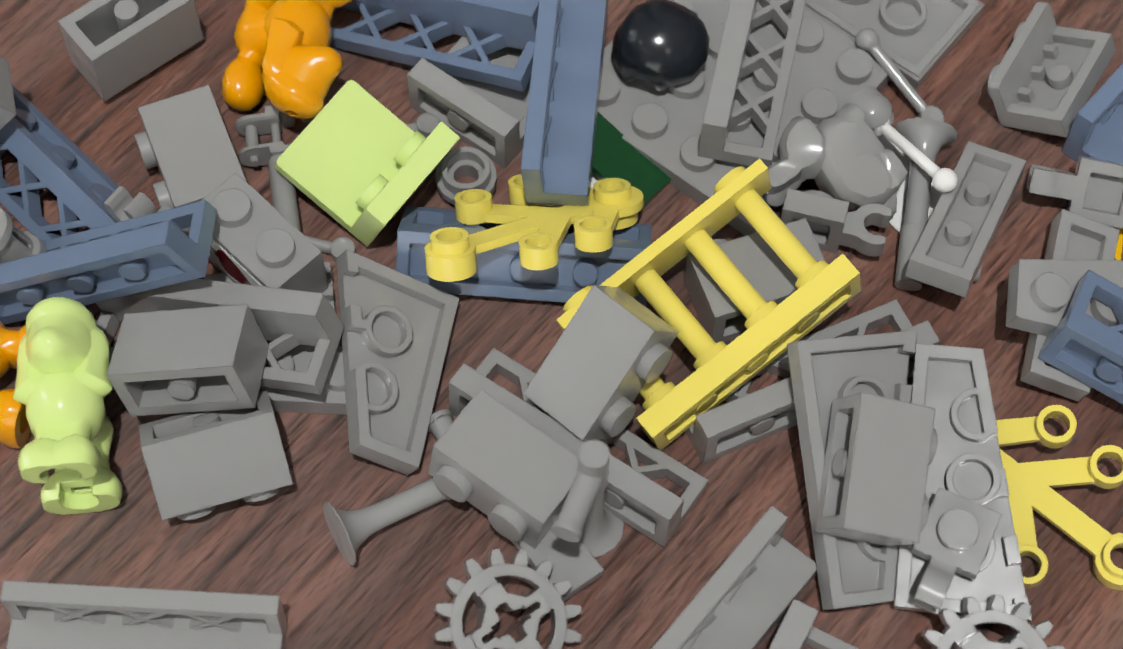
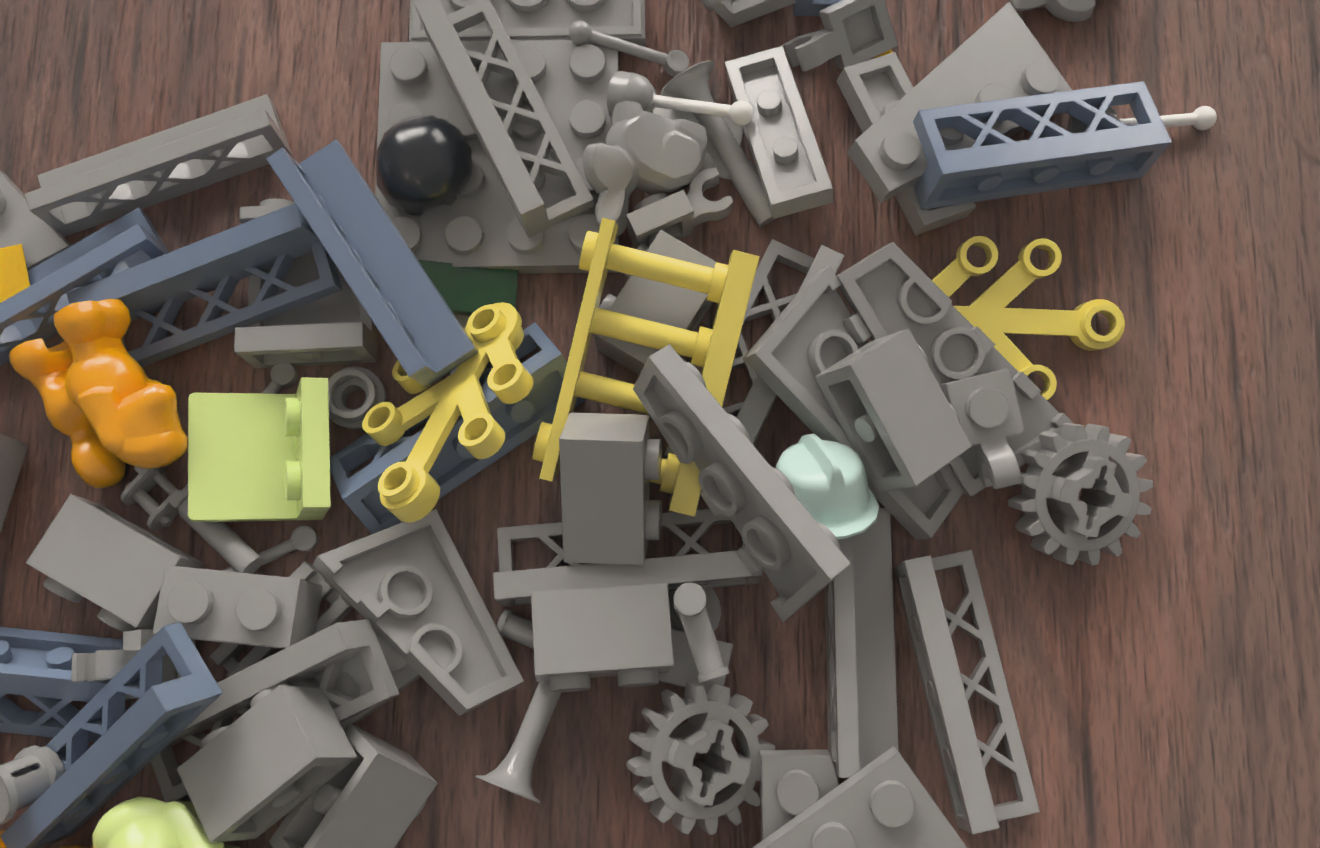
camera: 35 degrees left, 15 degrees up
(704, 425) = (740, 483): none -> light grey wing
(769, 485) = (830, 484): none -> light aqua piece

